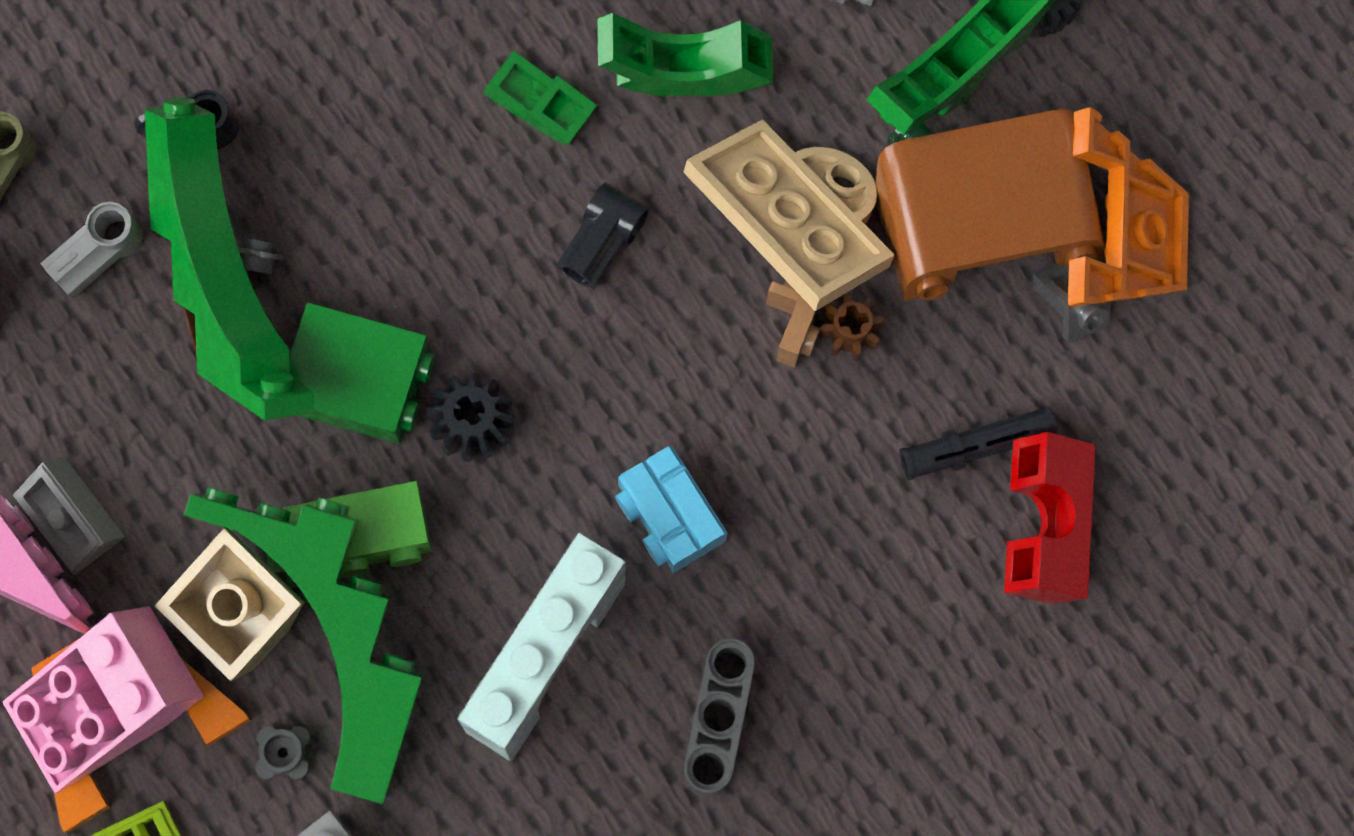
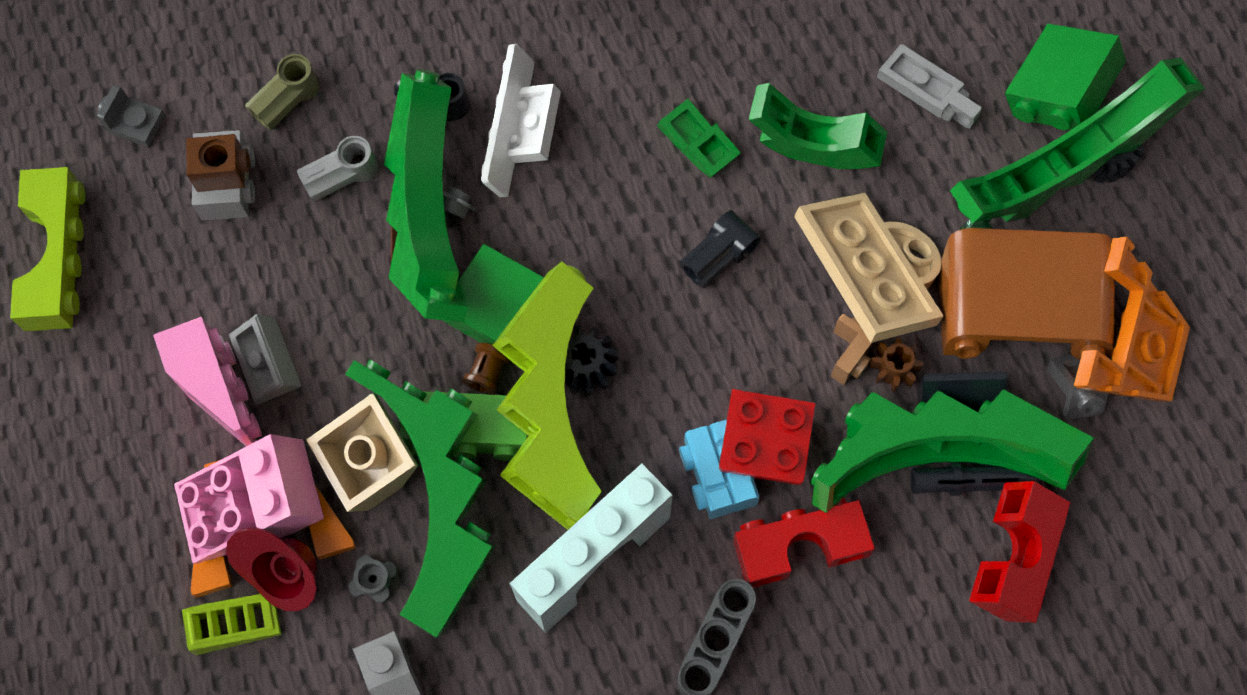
camera: 20 degrees right, 5 degrees down
(159, 770) = (274, 566): none -> dark red piece
(310, 131) = (521, 122): none -> white bracket
(352, 457) = (485, 369): none -> reddish brown bush
(410, 411) = (537, 340): none -> lime arch
(718, 457) = (767, 437): none -> red bracket
(828, 547) = (839, 533): none -> red arch
(928, 394) = (944, 430): none -> green arch
(938, 342) = (967, 388): none -> black slope

